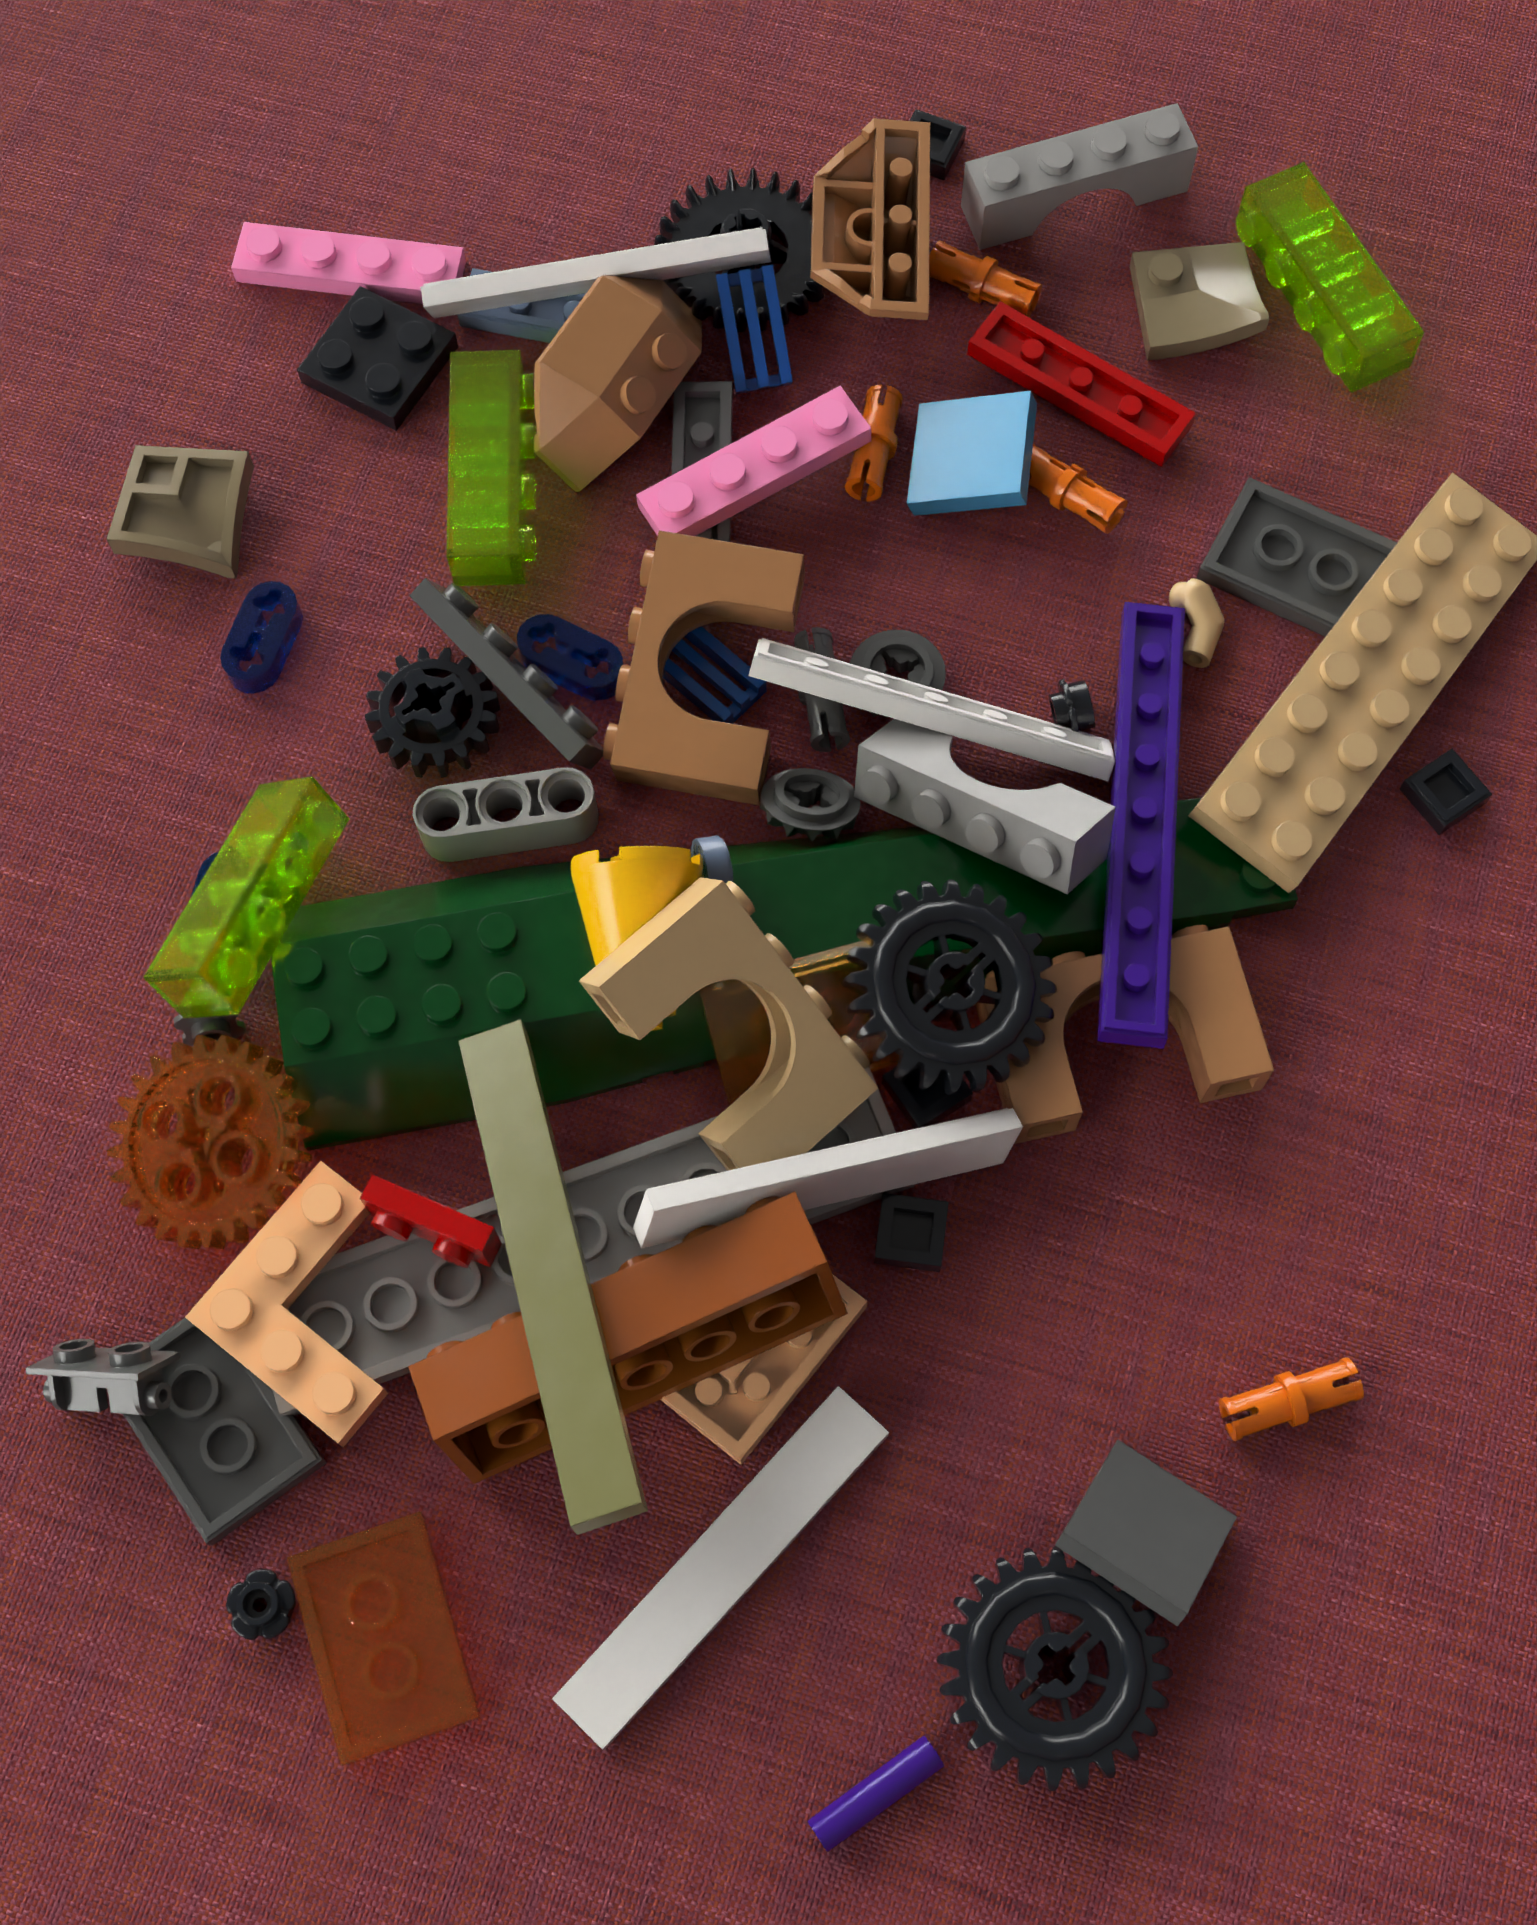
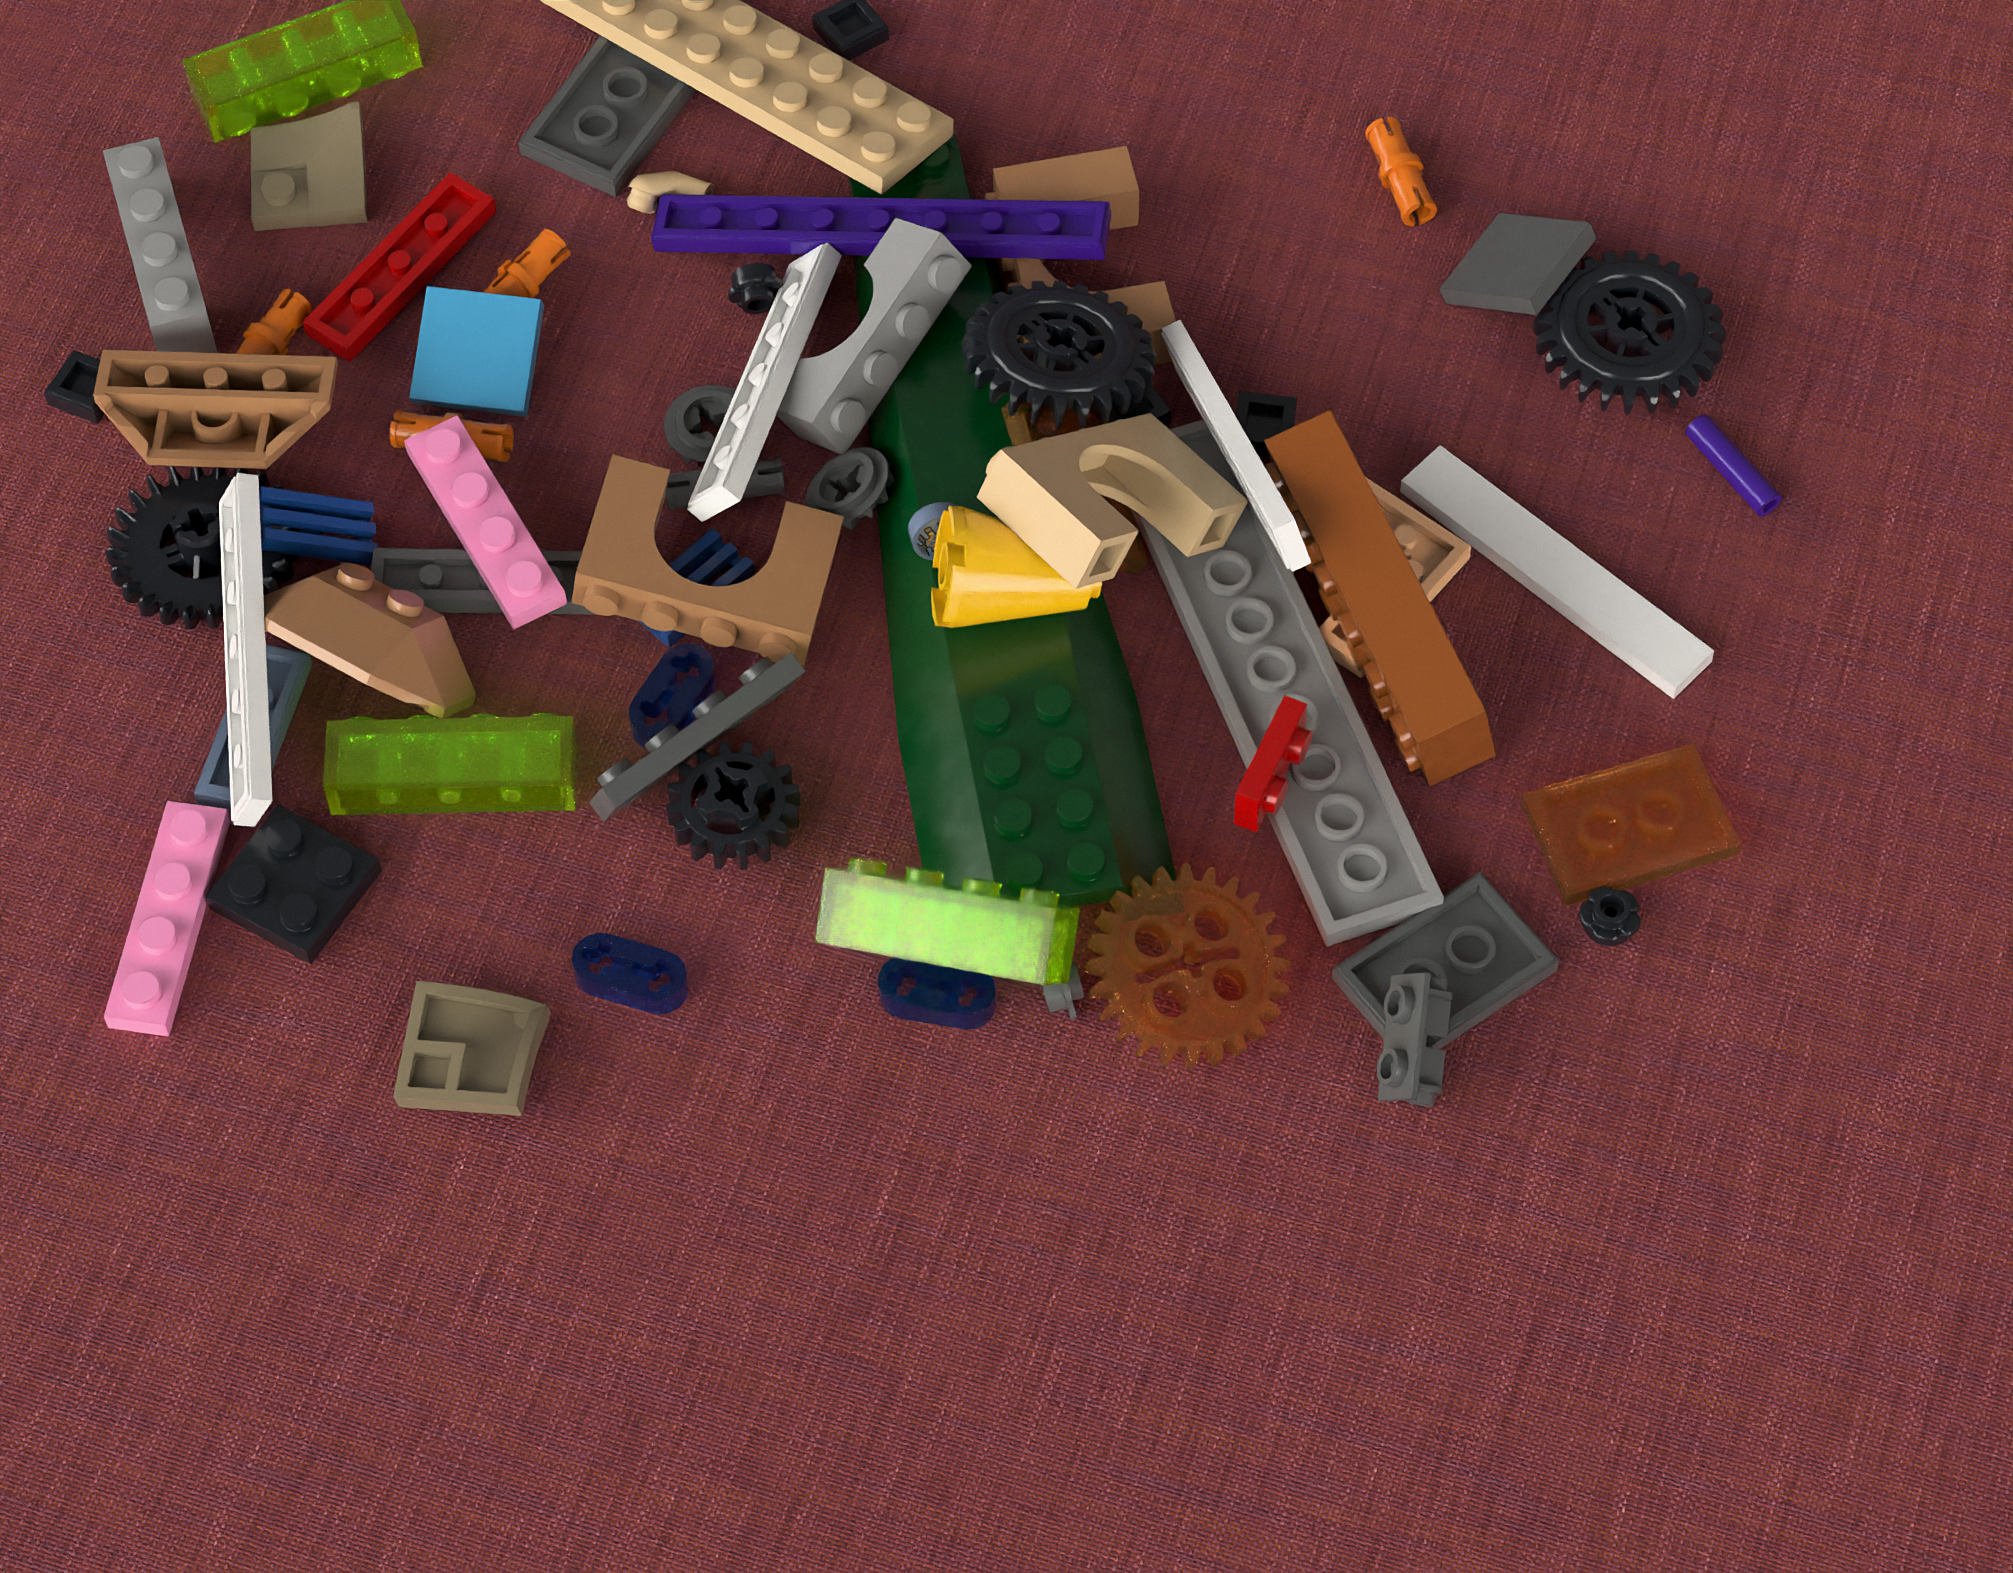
camera: 90 degrees left, 10 degrees down
(252, 1298) = (1344, 918): light nougat plate -> none
(480, 800) = (856, 761): light grey beam -> none
(552, 1282) = (1326, 628): olive tile -> none

